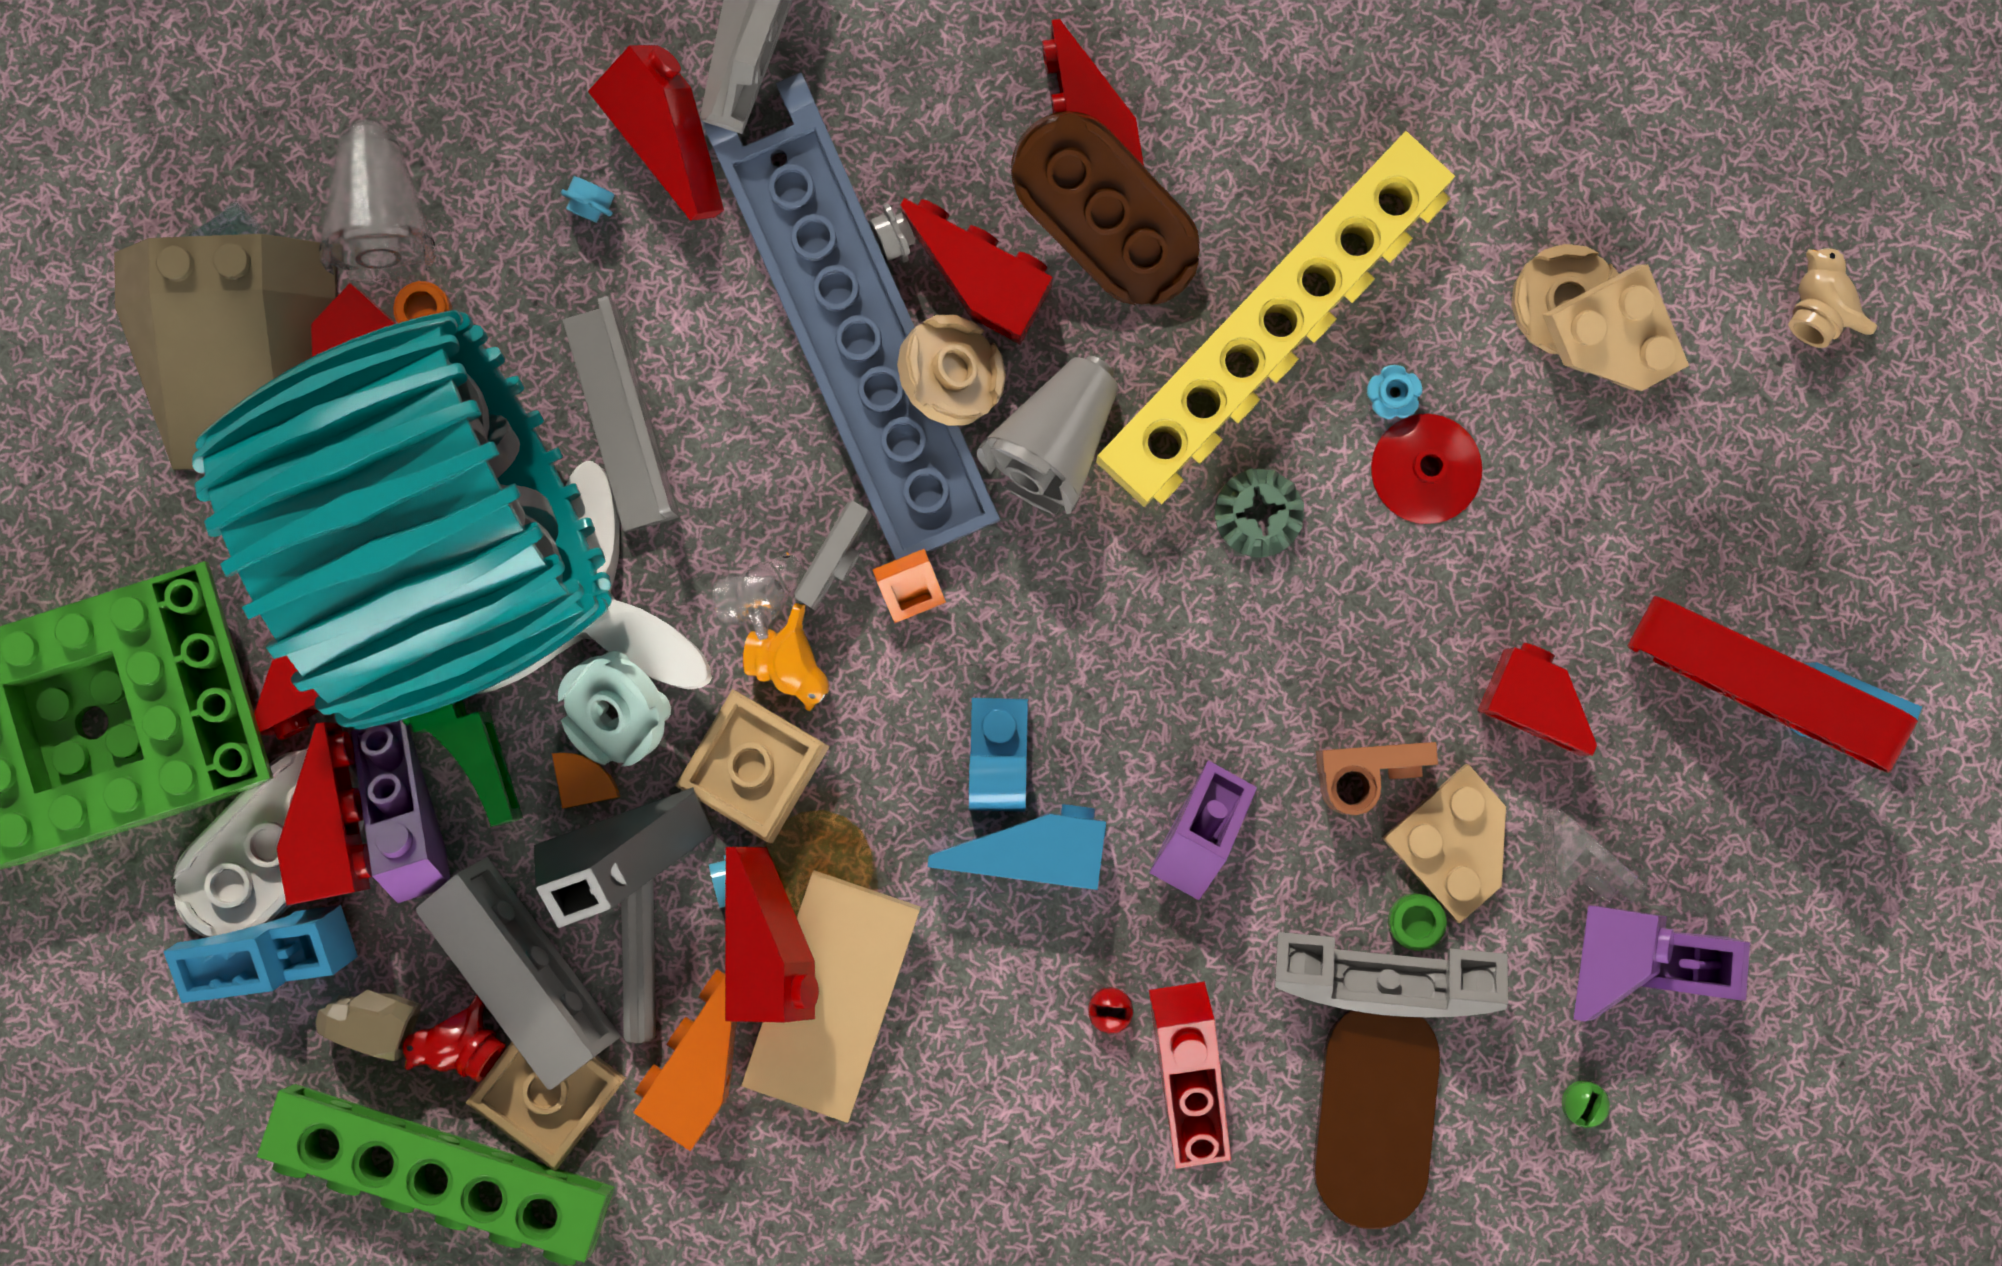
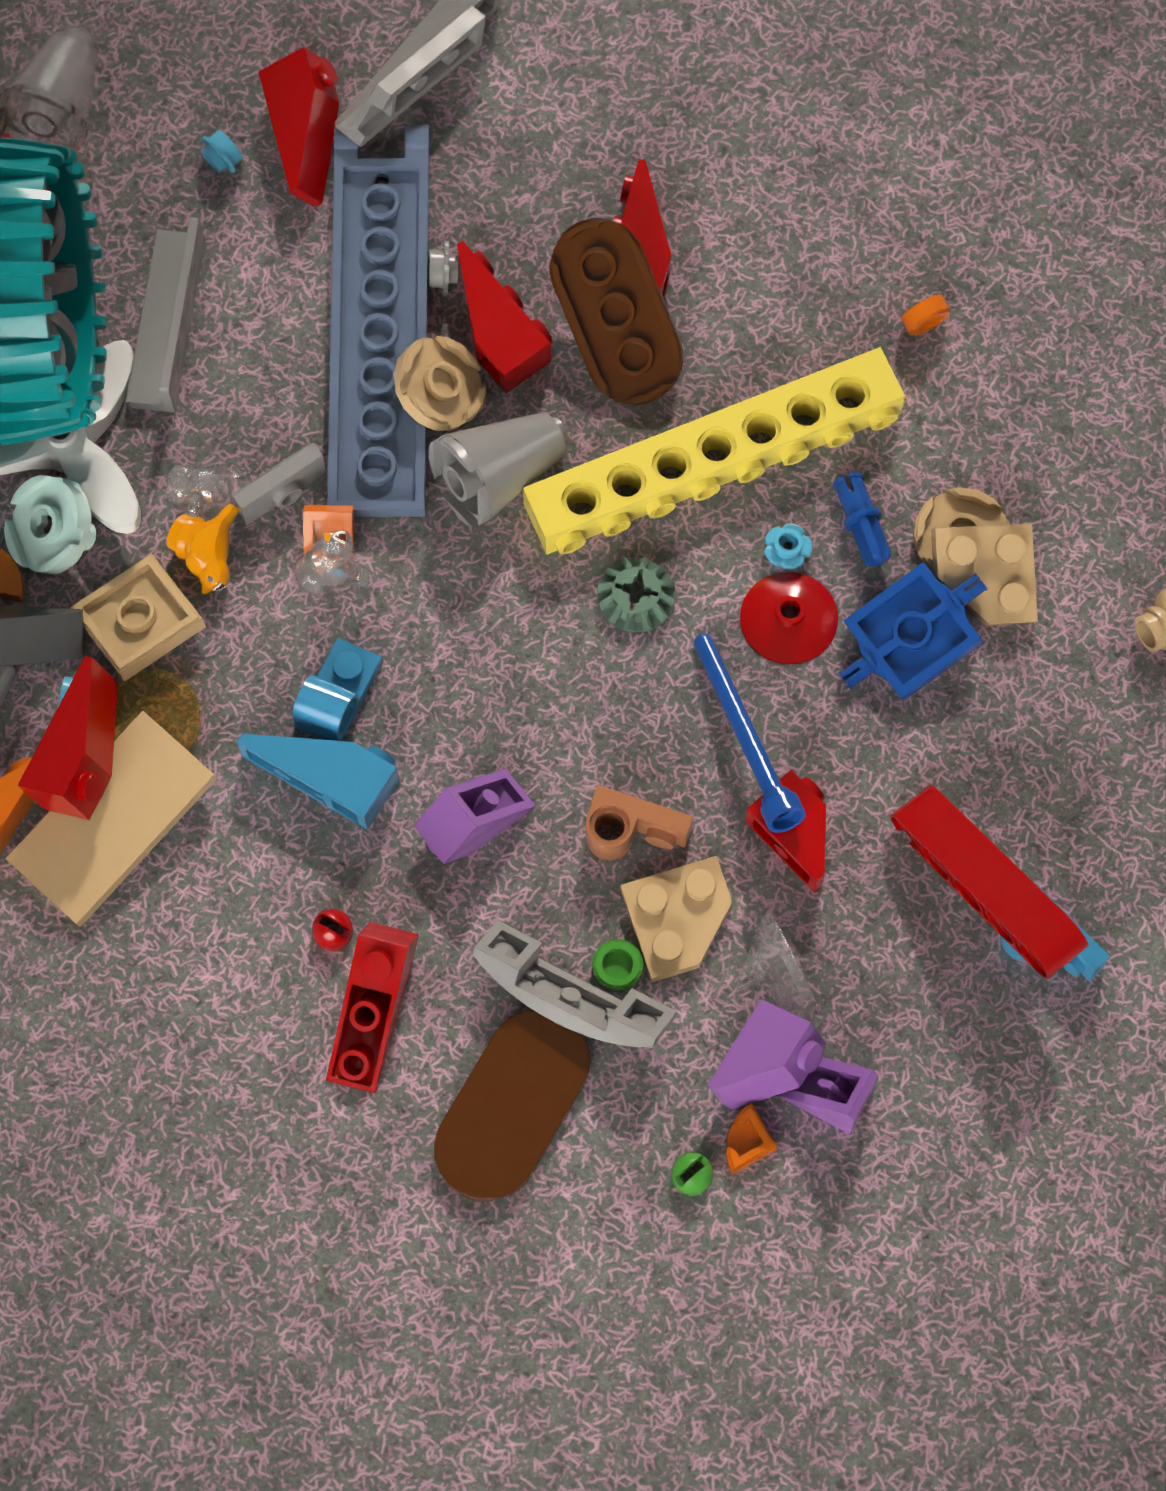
camera: 20 degrees right, 15 degrees down
(932, 626) = (332, 565): none -> clear animal
(1431, 68) = (926, 315): none -> orange tile
(1462, 330) = (863, 520): none -> blue axle
(1526, 697) = (780, 806): none -> blue piece
(1569, 434) = (913, 631): none -> blue plate
(1626, 1046) = (747, 1140): none -> orange tile

